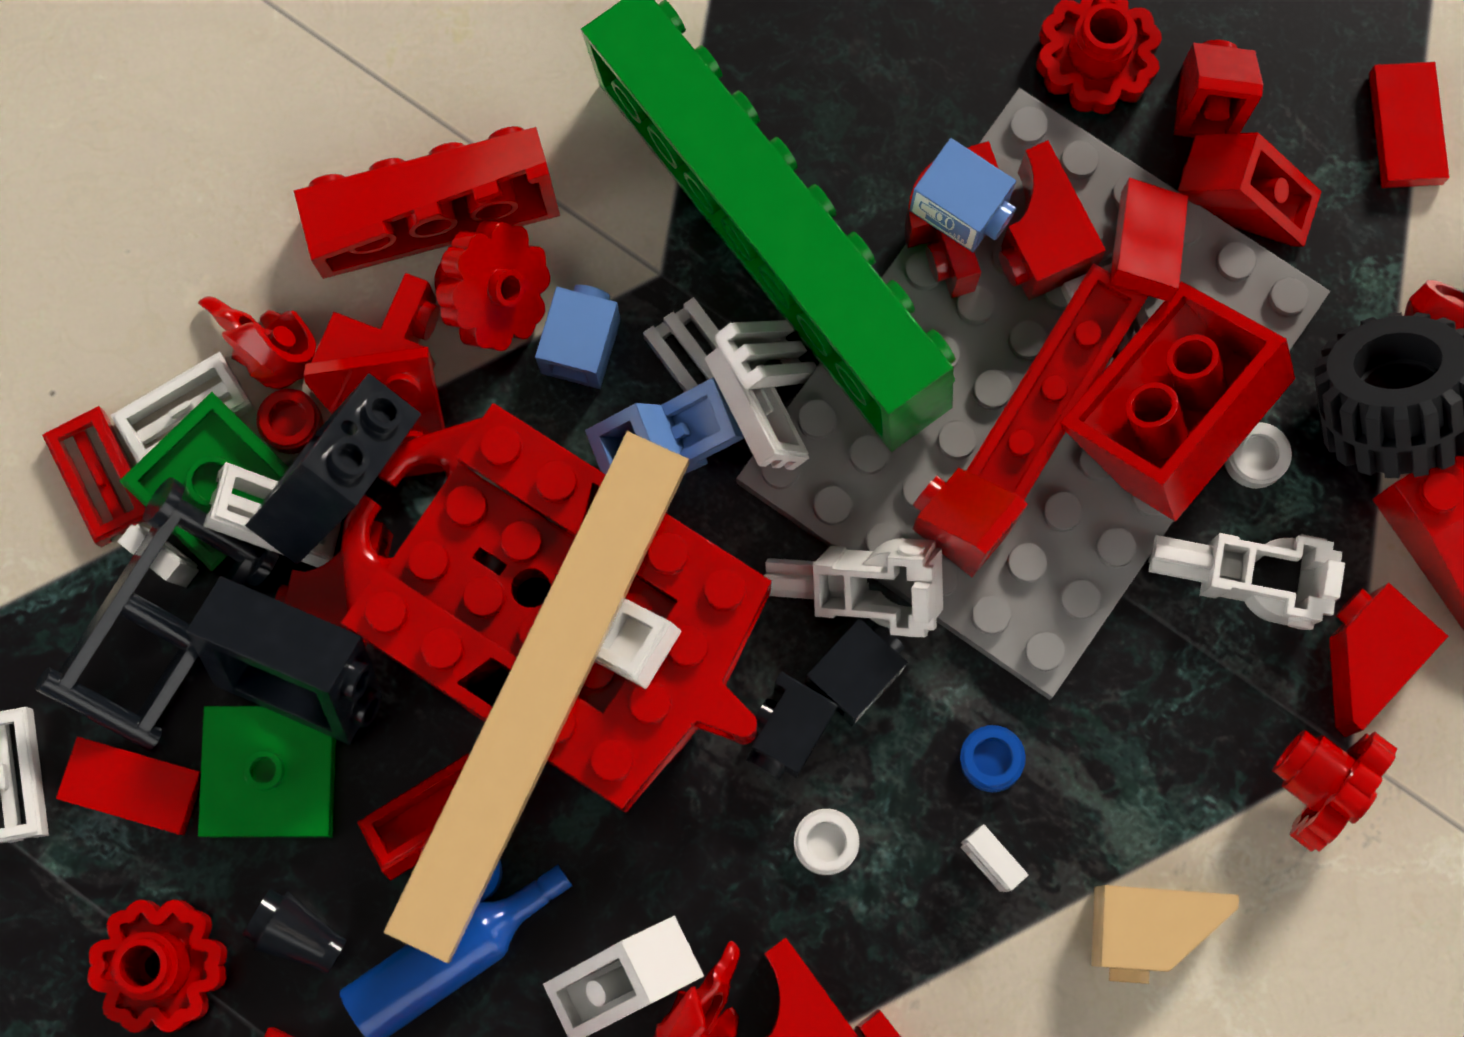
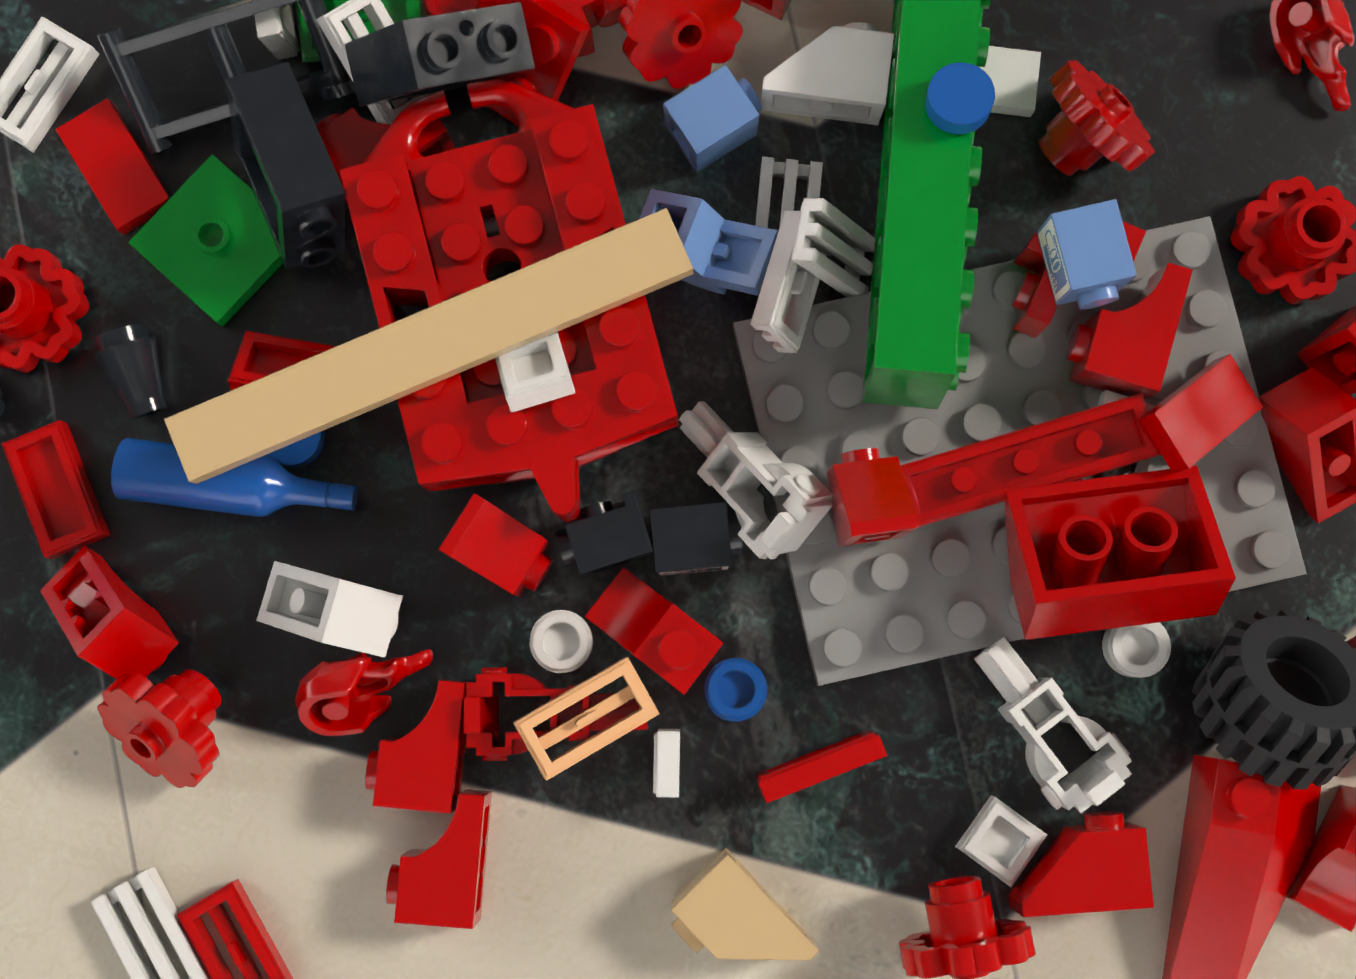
camera: 40 degrees right, 5 degrees up
(646, 222) = (834, 76): none -> white slope
(718, 809) = (498, 547): none -> red slope
(769, 161) = (960, 98): none -> blue tile
(782, 111) = (1014, 79): none -> white tile
(872, 94) = (1092, 123): none -> red plant
(886, 886) = (482, 712): none -> red piece
(887, 931) = (538, 745): none -> light nougat tile
(892, 767) = (654, 630): none -> red arch
(1109, 756) = (820, 765): none -> red tile
(1293, 691) = (1001, 840): none -> white tile

